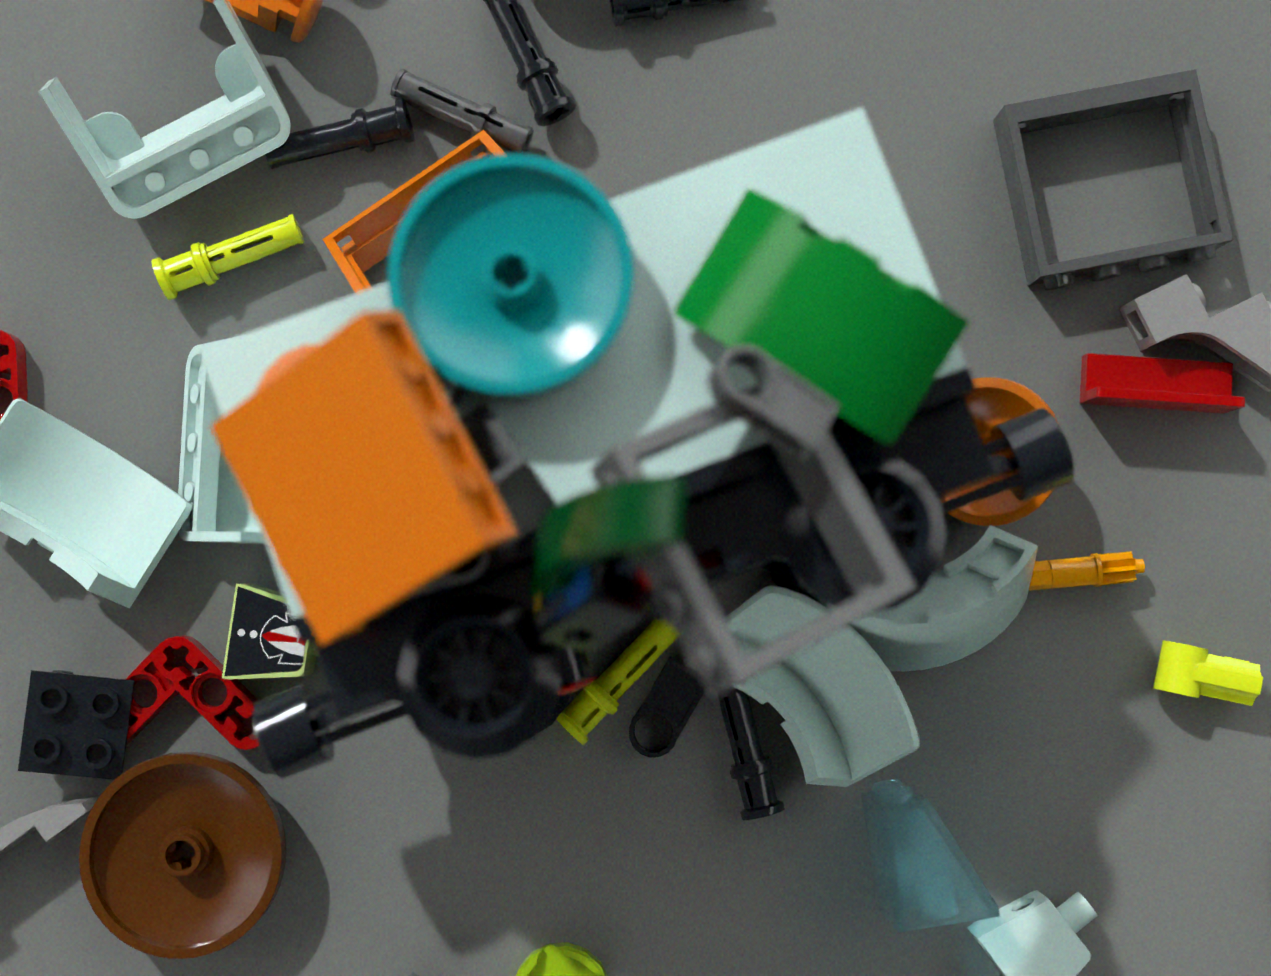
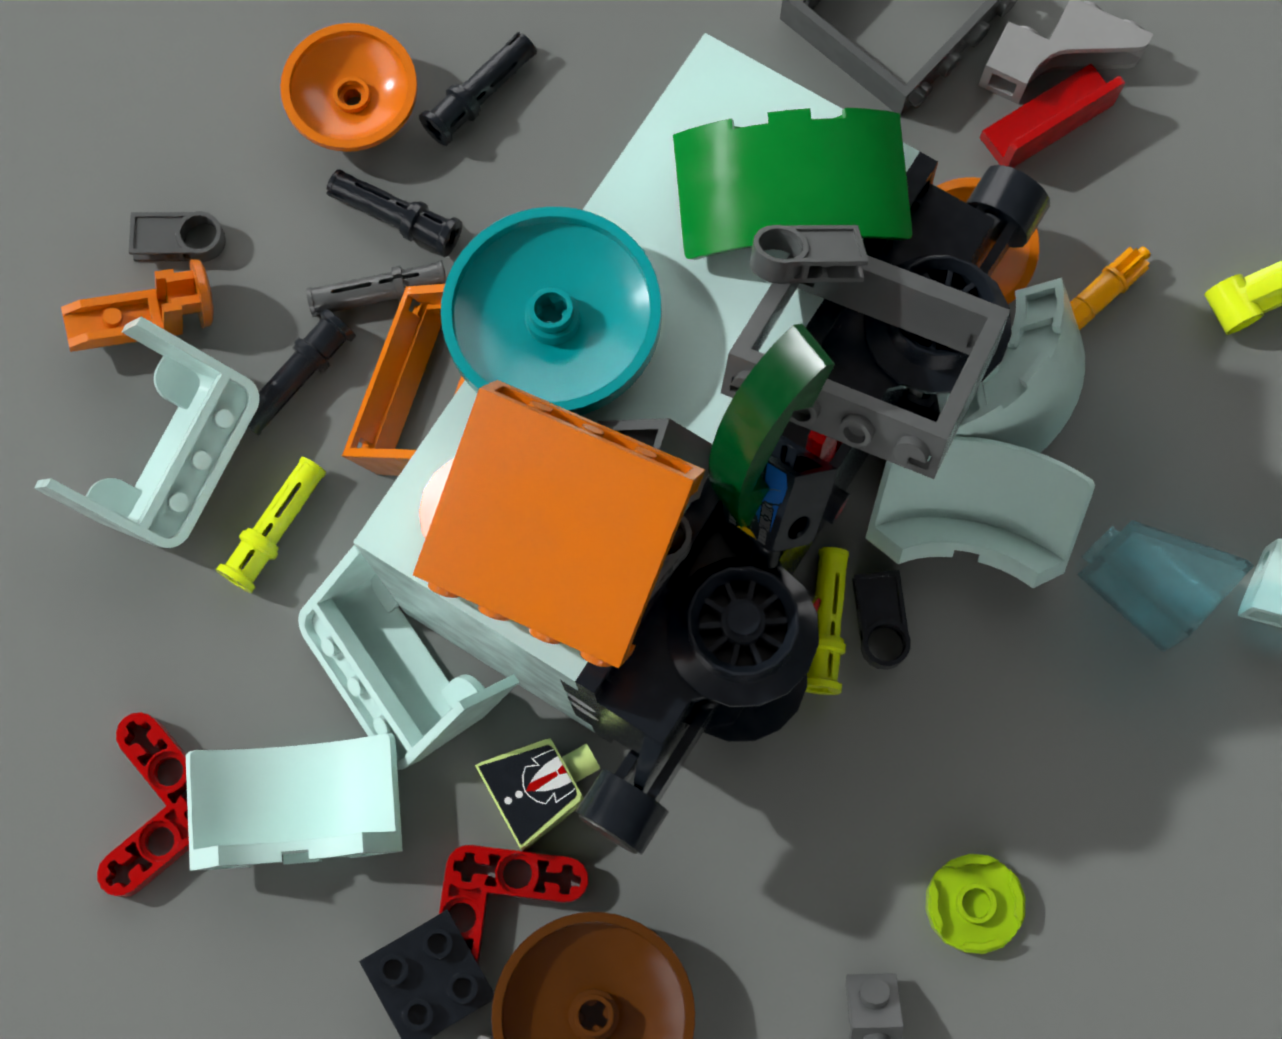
camera: 35 degrees left, 10 degrees down
(750, 766) = (981, 613): black pin -> none

